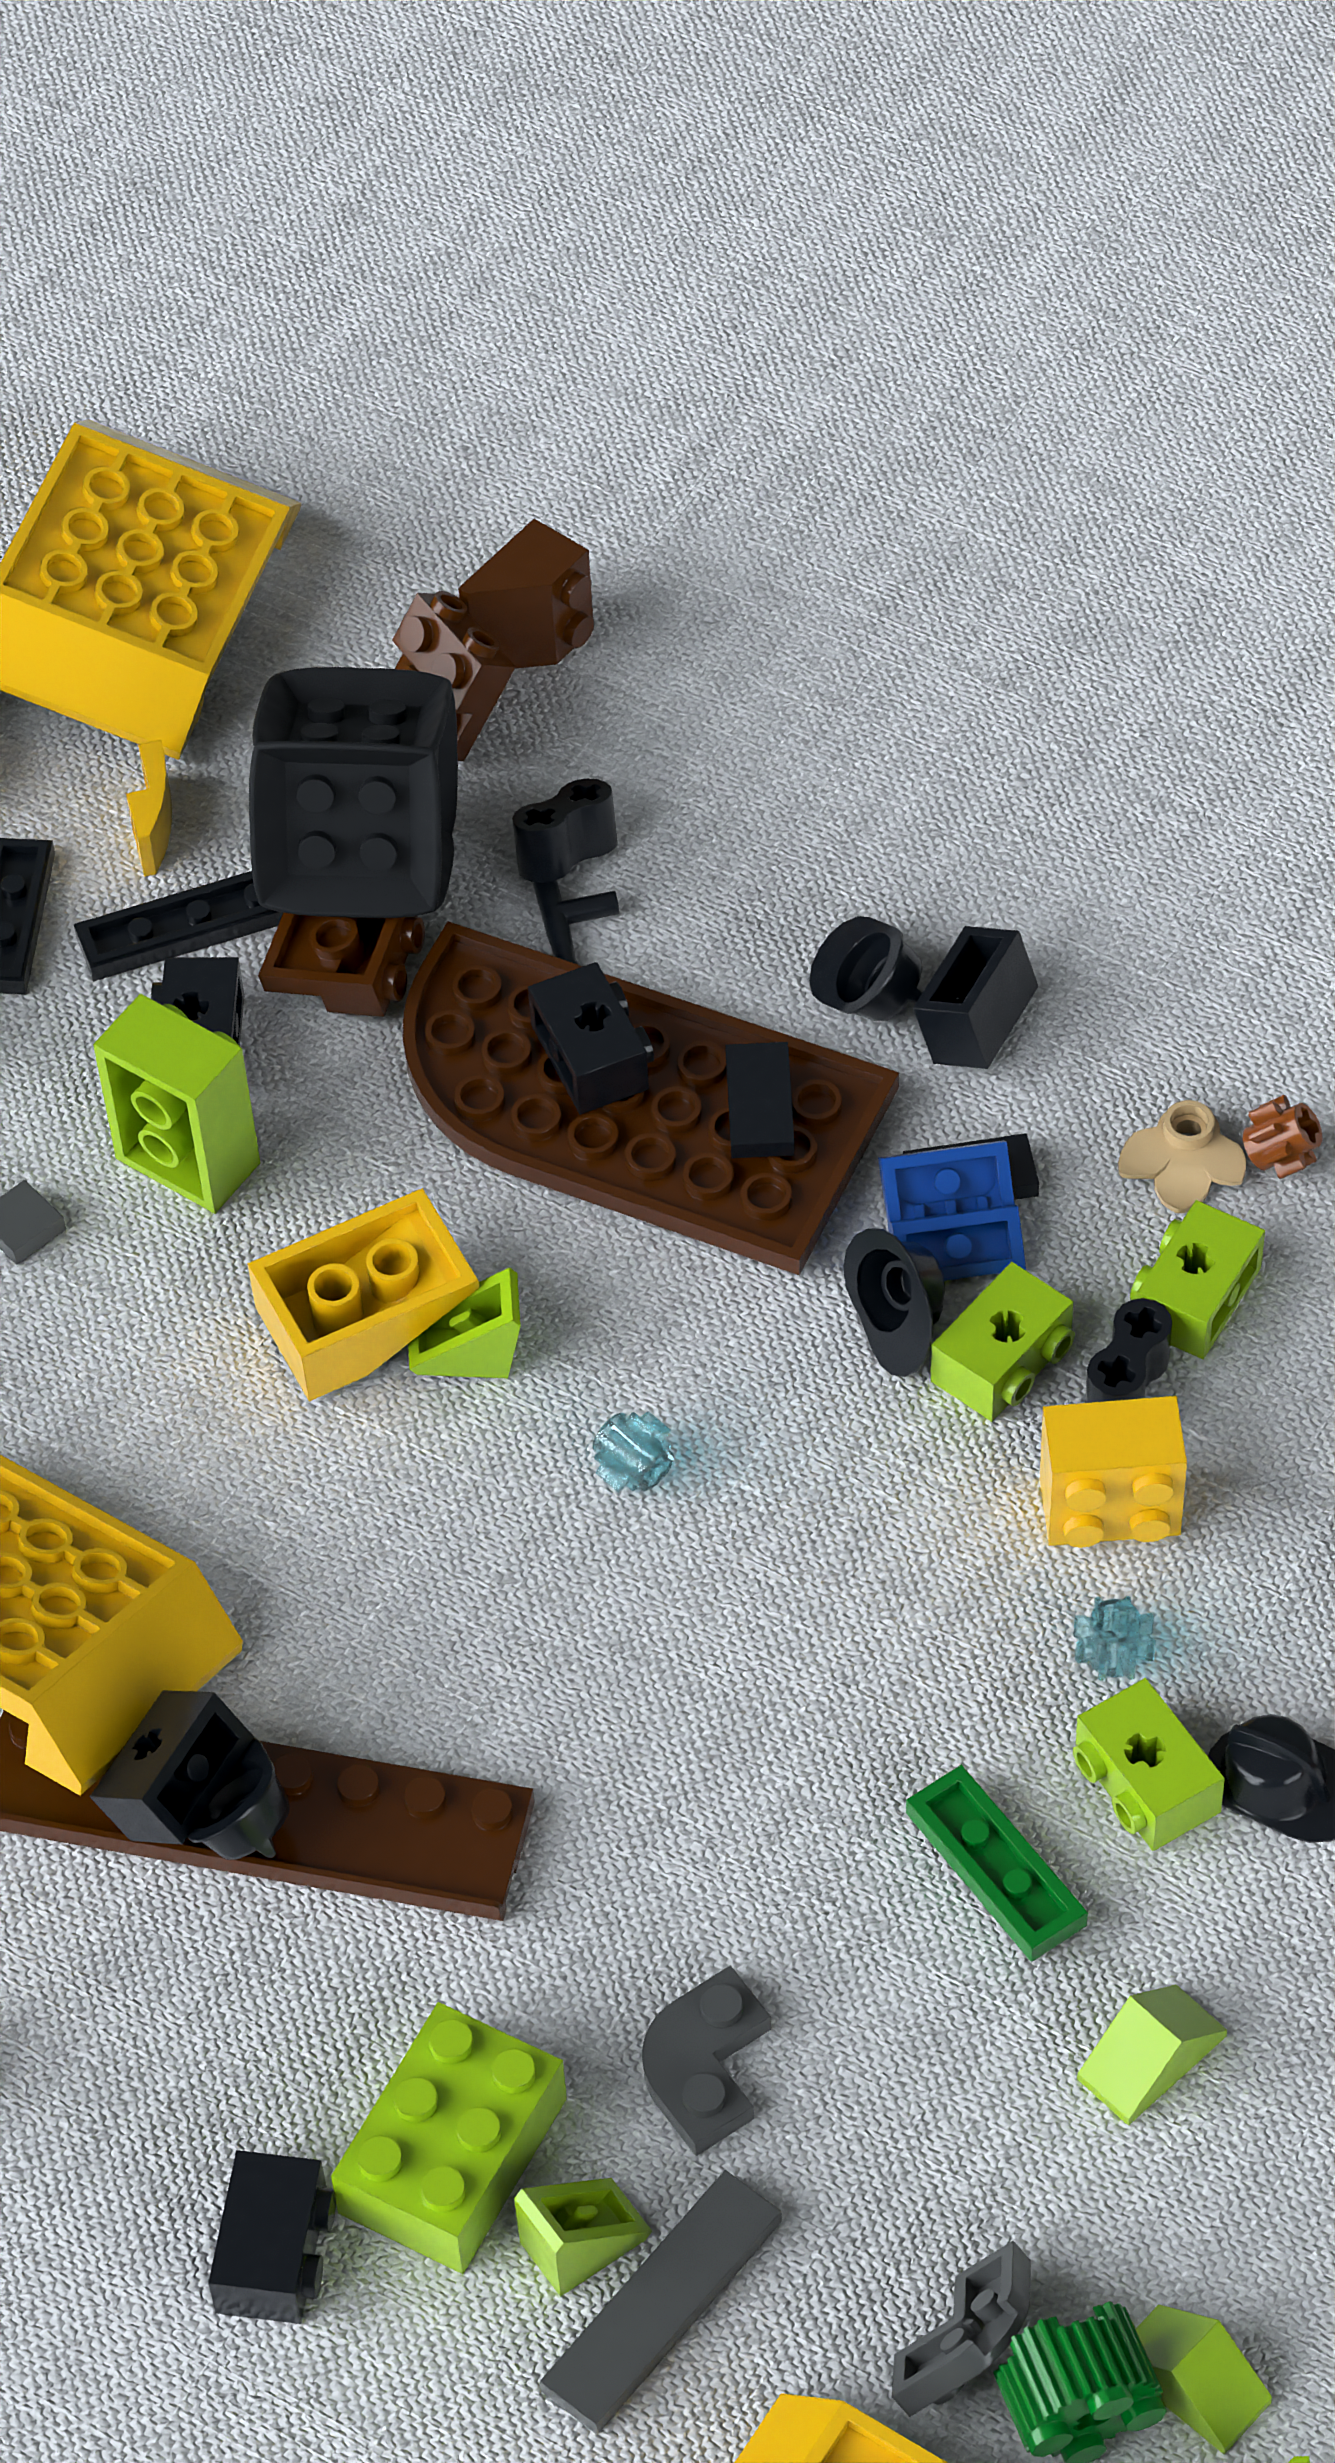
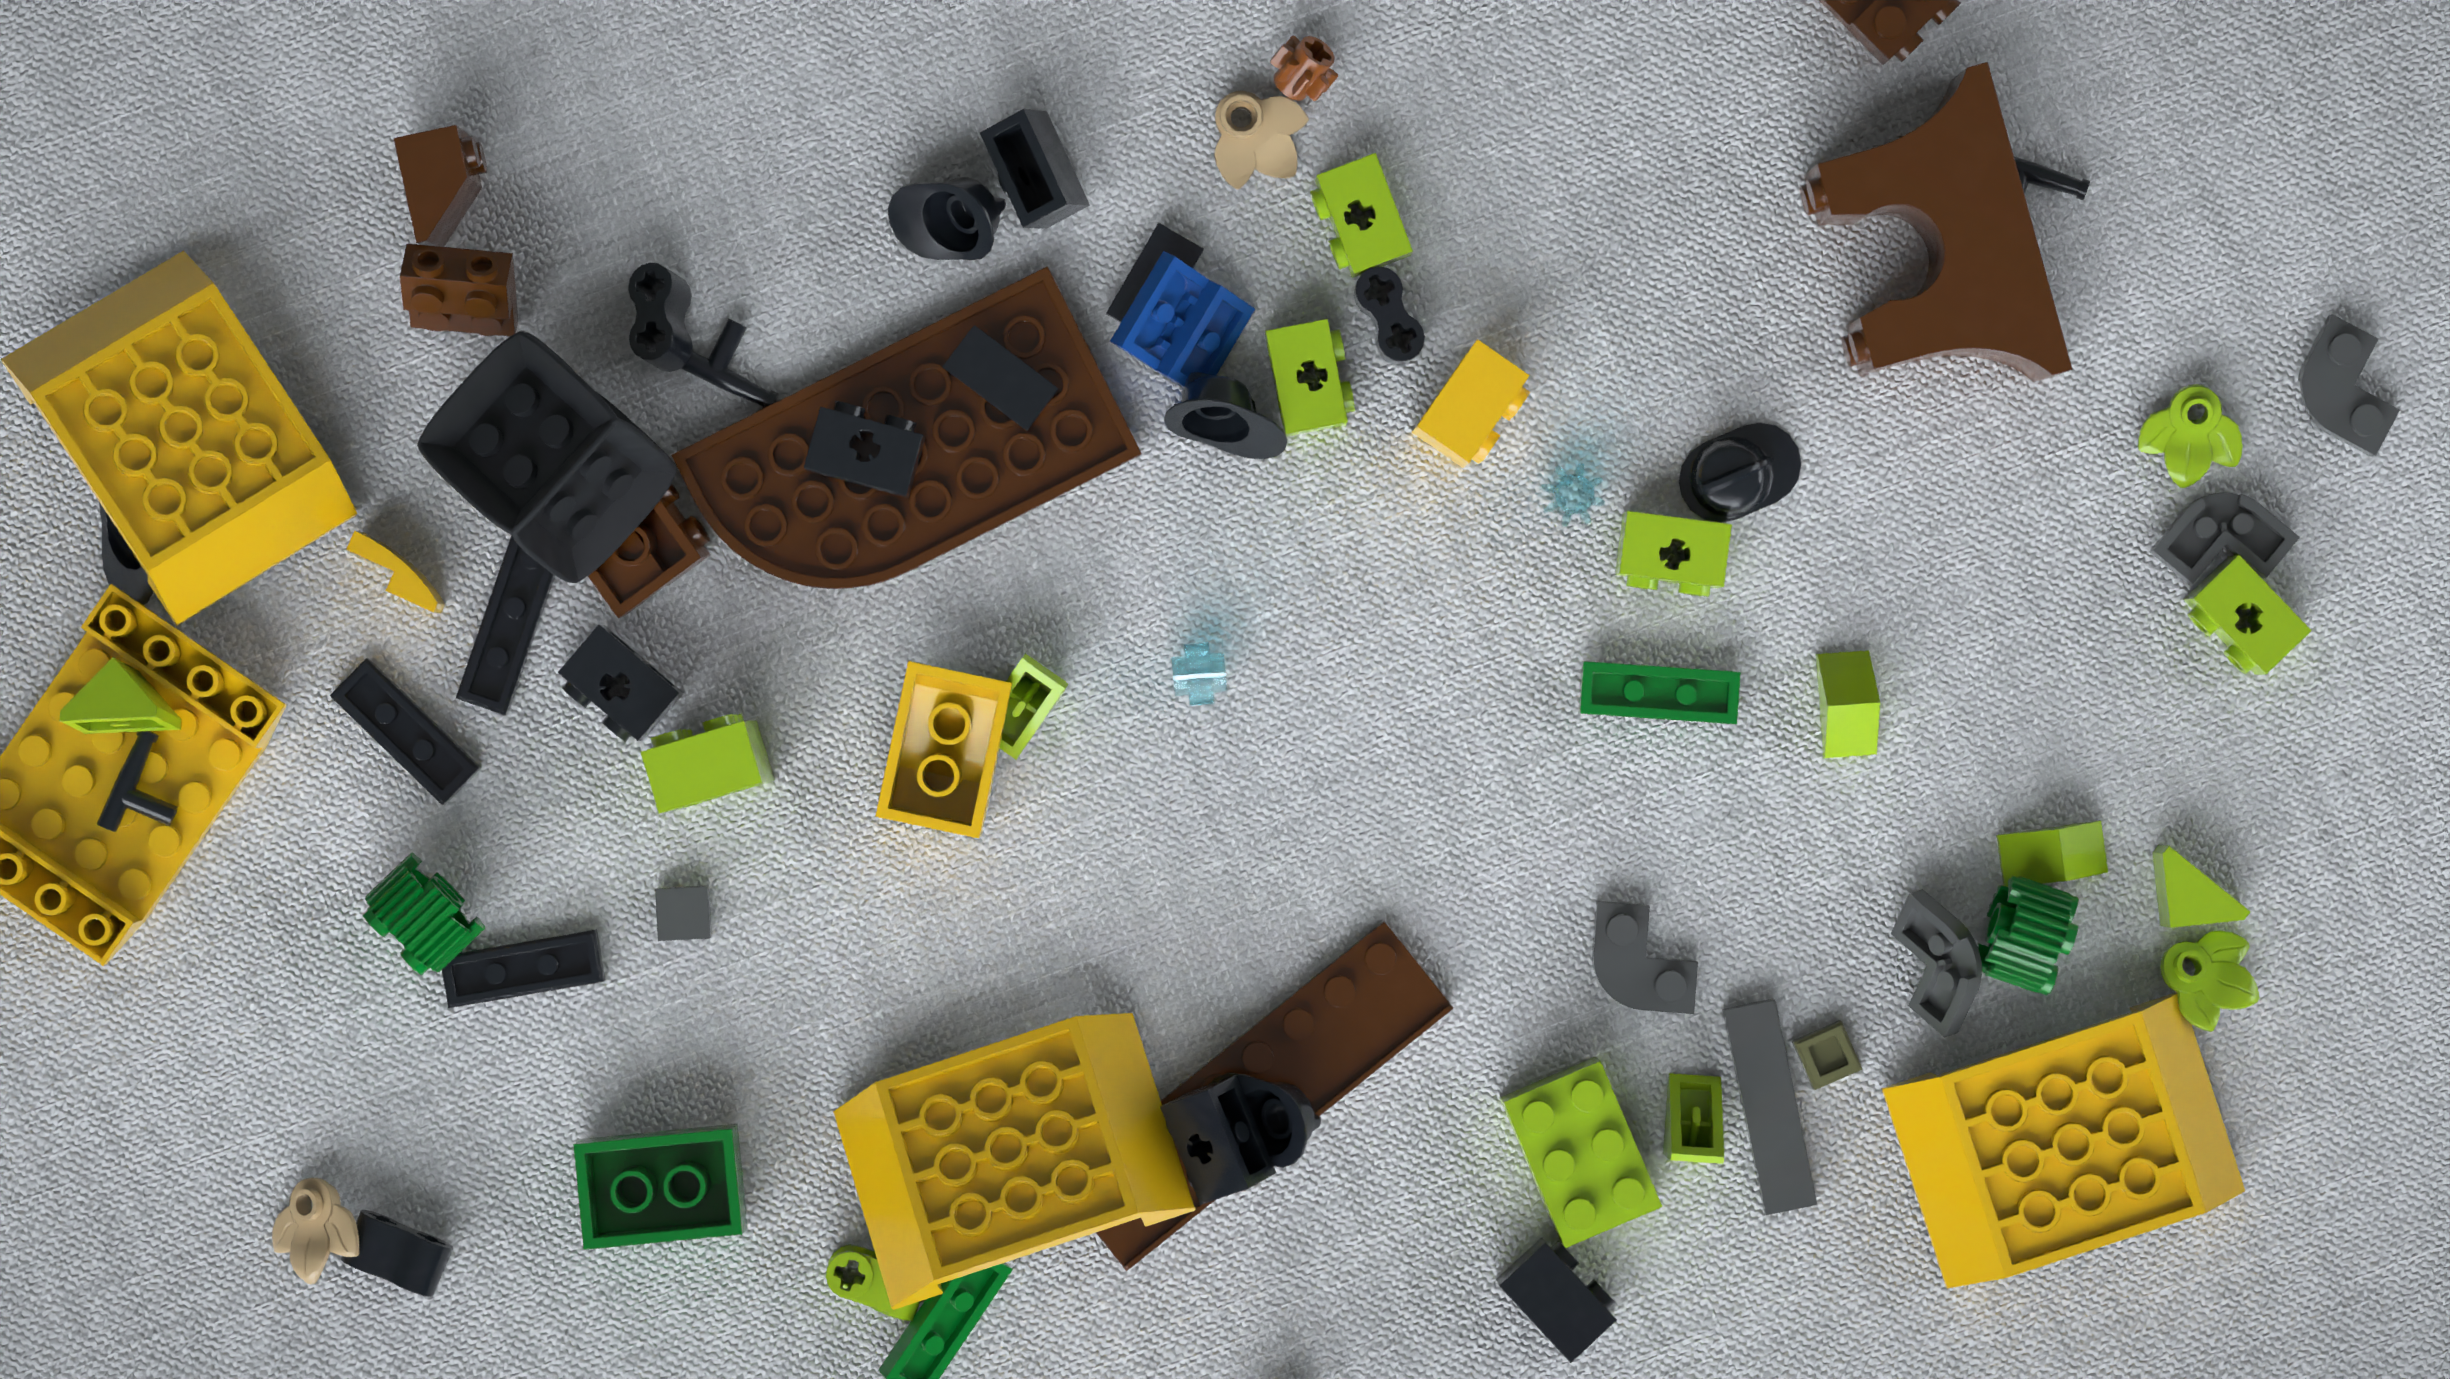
camera: 55 degrees left, 35 degrees up
(768, 2317) = (1827, 1055): none -> olive tile

